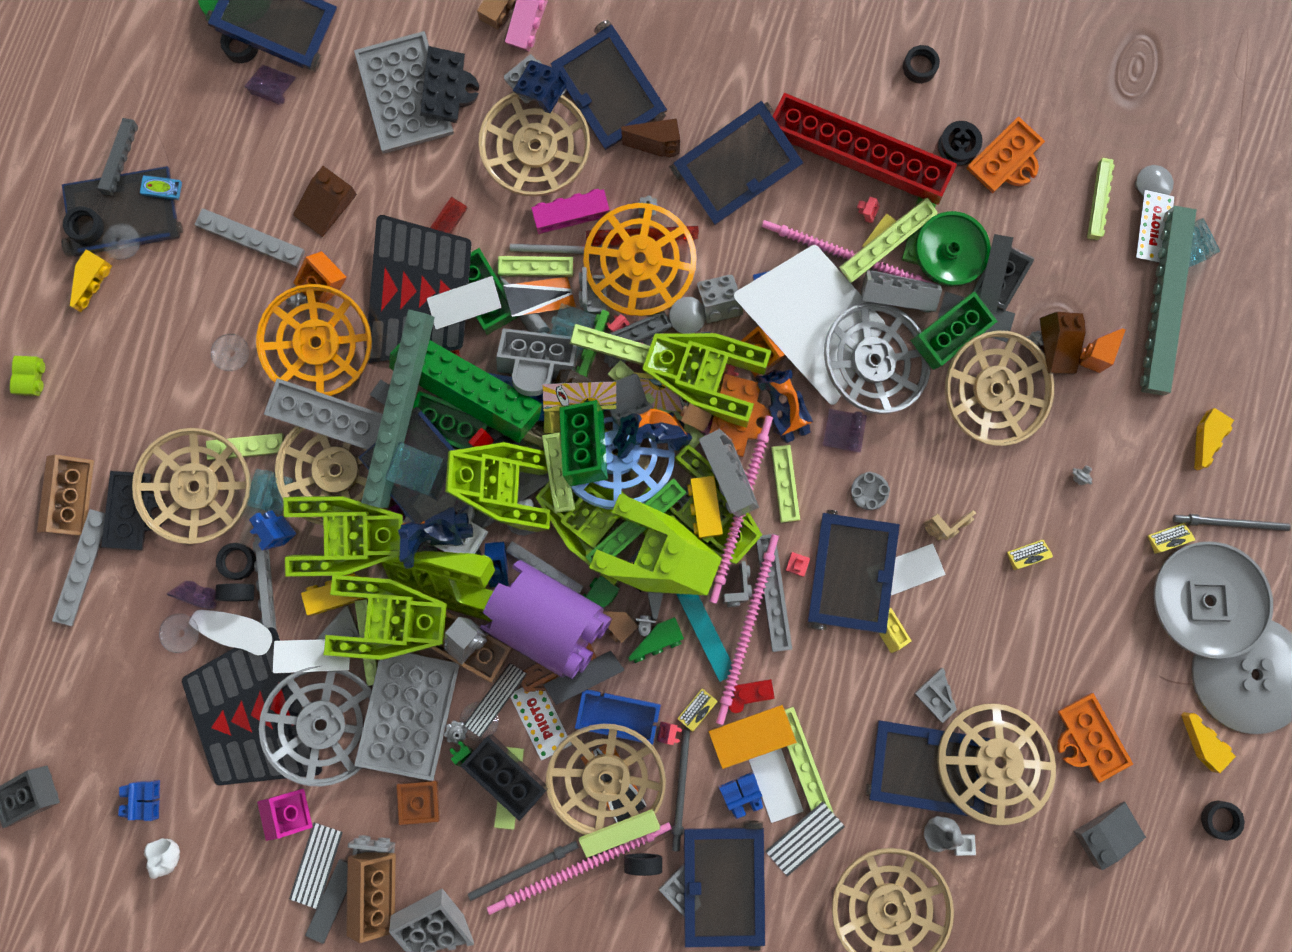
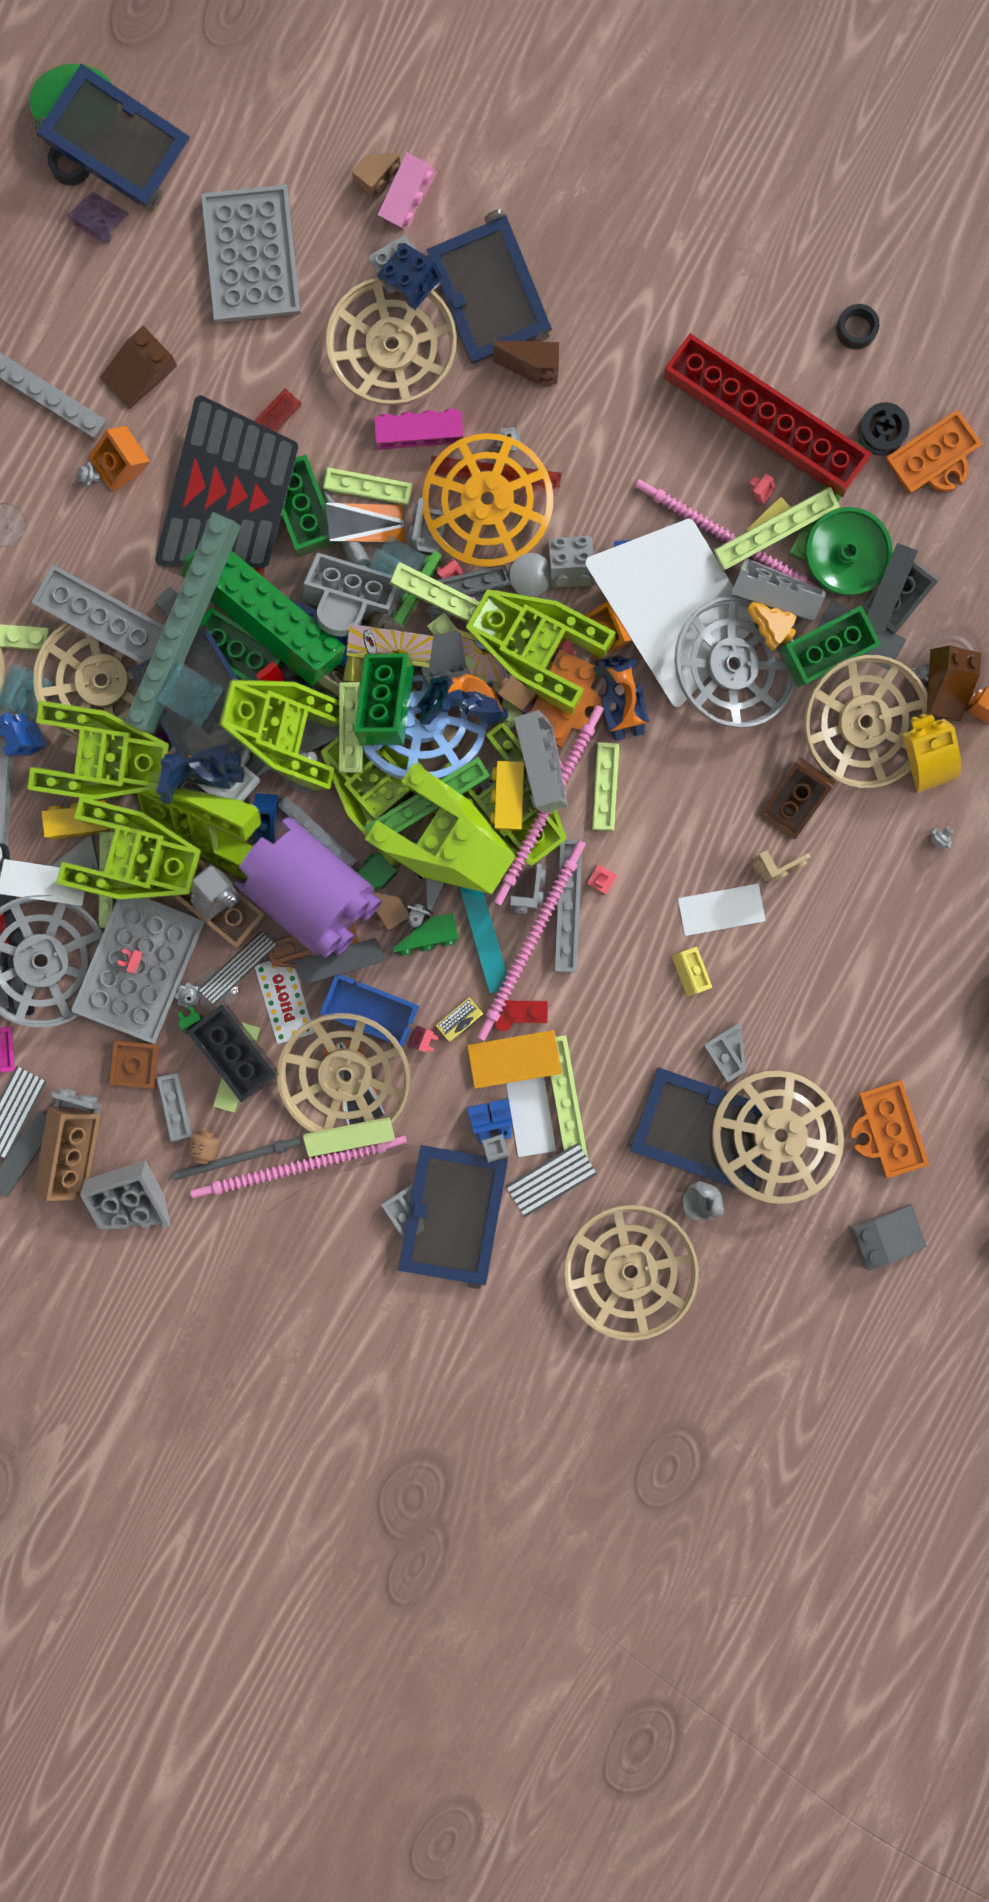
camera: 10 degrees right, 5 degrees up
(307, 331) = (96, 515): light orange dish -> none
(402, 710) = (133, 961): none -> coral tile
(446, 85) = (300, 254): black plate -> none
(460, 834) = (174, 1107): none -> light grey tile
(464, 302) = (278, 515): white sticker -> none
(491, 866) = (203, 1147): none -> medium nougat head
(550, 248) = (388, 469): light grey bar -> none
(643, 864) = (368, 1174): black tyre -> none
(677, 828) = (413, 1145): dark grey bar -> none
(737, 162) = (621, 406): clear smoke door -> none
(751, 820) = (495, 1148): none -> light grey tile
(845, 430) = (684, 738): clear purple hinge -> none
(853, 573) = (661, 900): clear smoke door -> none
(870, 491) = (699, 812): light grey dish -> none
(902, 320) = (773, 624): none -> light orange rock
(952, 464) = (797, 798): none -> reddish brown slope
(967, 847) = (727, 1220): white tile -> none
(1029, 554) = (863, 915): slope -> none
(1060, 404) = (932, 752): none -> yellow piece

